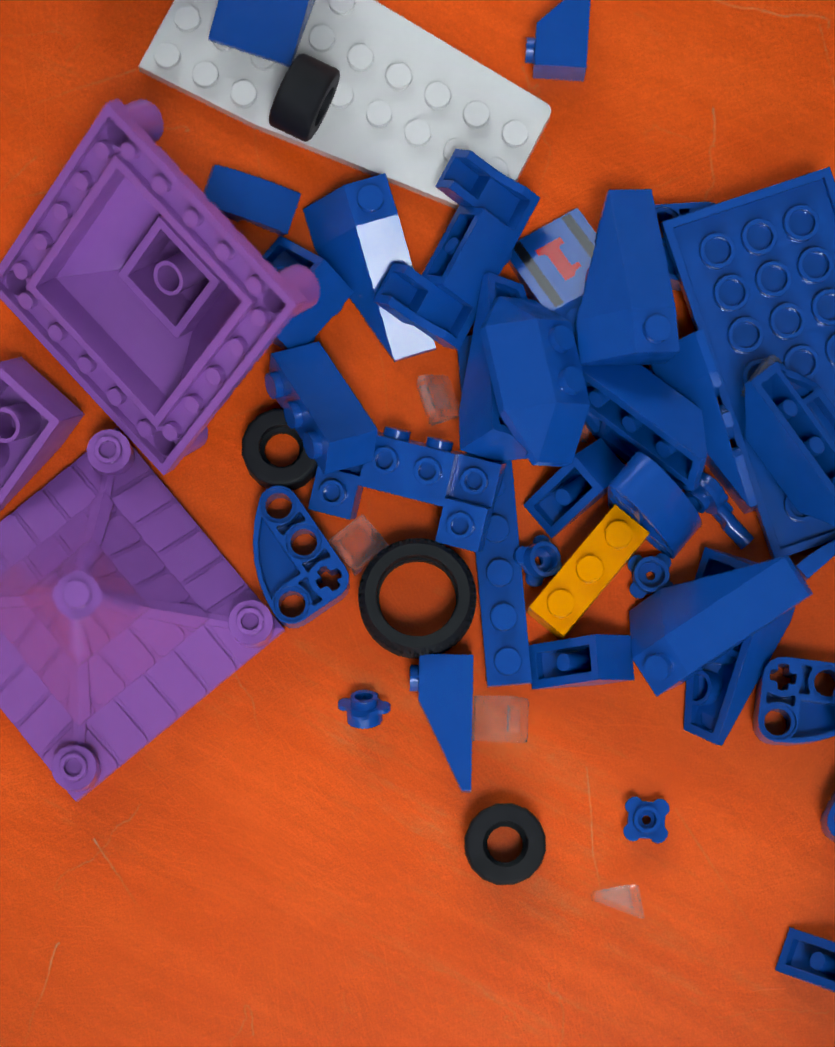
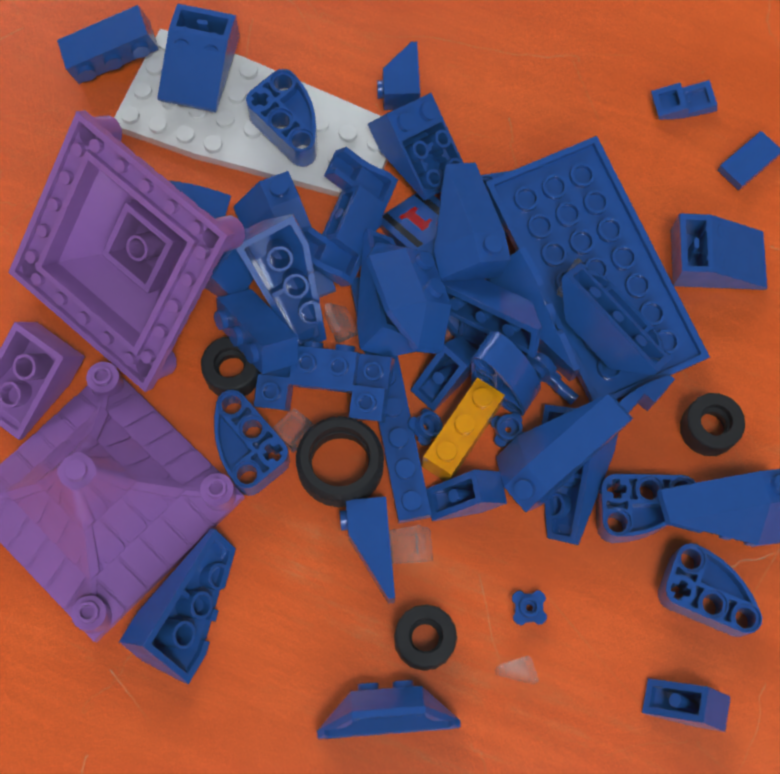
camera: 10 degrees left, 10 degrees down
(184, 783) = (176, 619): none -> blue wedge
(304, 97) = (226, 125): black tyre -> none
(364, 709) = (308, 547): blue plate -> none
(367, 332) = (284, 272): none -> blue wedge
(392, 74) = (293, 108): none -> blue beam
(445, 934) = (387, 711): none -> blue wedge
(574, 146) = (417, 144): none -> blue slope

